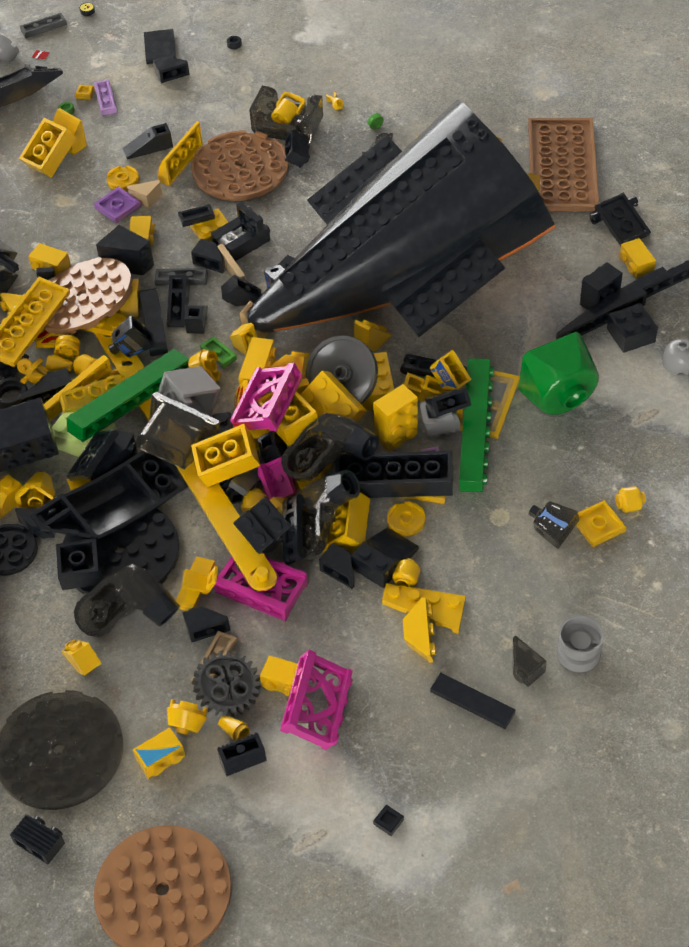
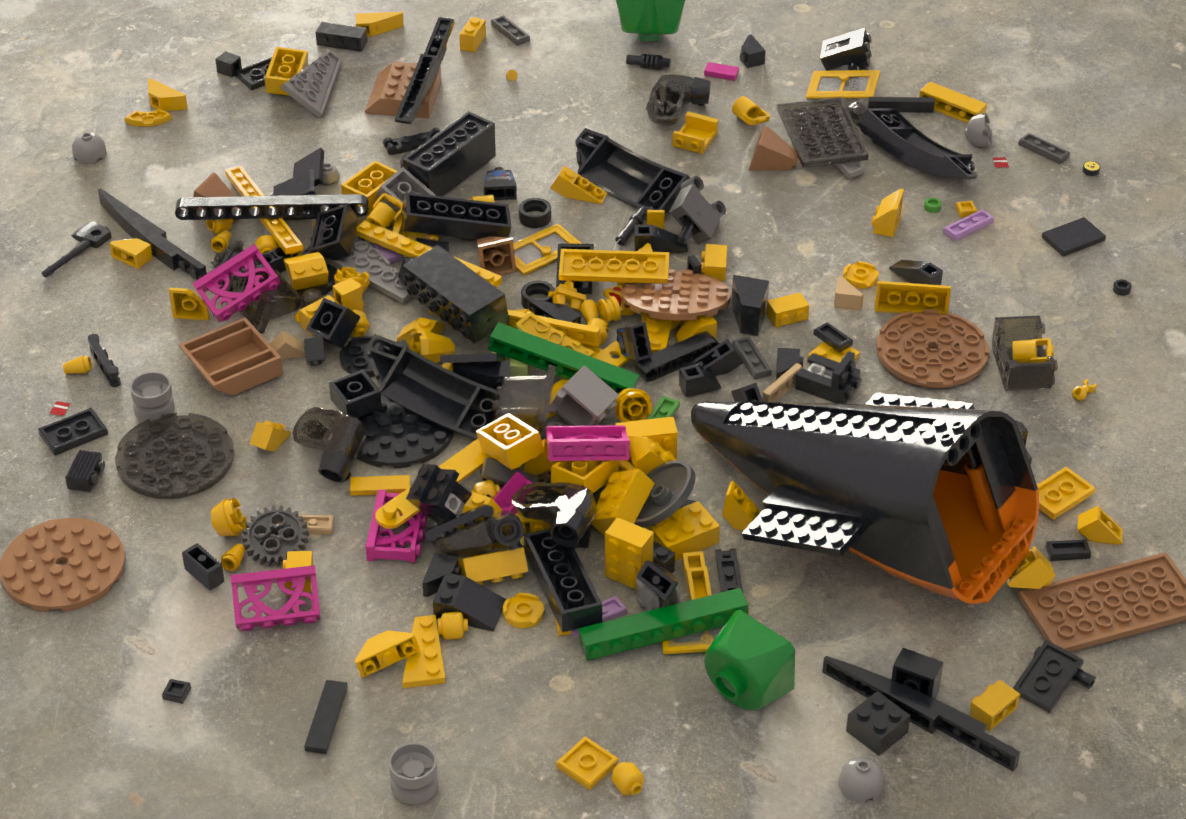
camera: 65 degrees right, 10 degrees down
(47, 148) = (853, 205): yellow brick -> none
(117, 205) = (818, 282): medium lavender plate -> none
(159, 753) = (189, 516): yellow brick -> none
(170, 68) = (1038, 252): black slope -> none
(199, 582) = (375, 479): yellow bracket -> none
(204, 623) = (334, 501): black slope -> none
(242, 337) = (683, 423): yellow slope -> none
(297, 148) = (981, 379): black brick -> none
(375, 121) = (1071, 429): bright green tile -> none
(450, 372) = (708, 574): yellow torso -> none
(526, 662) = (381, 741): clear smoke slope -> none
(554, 522) = (562, 721): clear smoke torso -> none

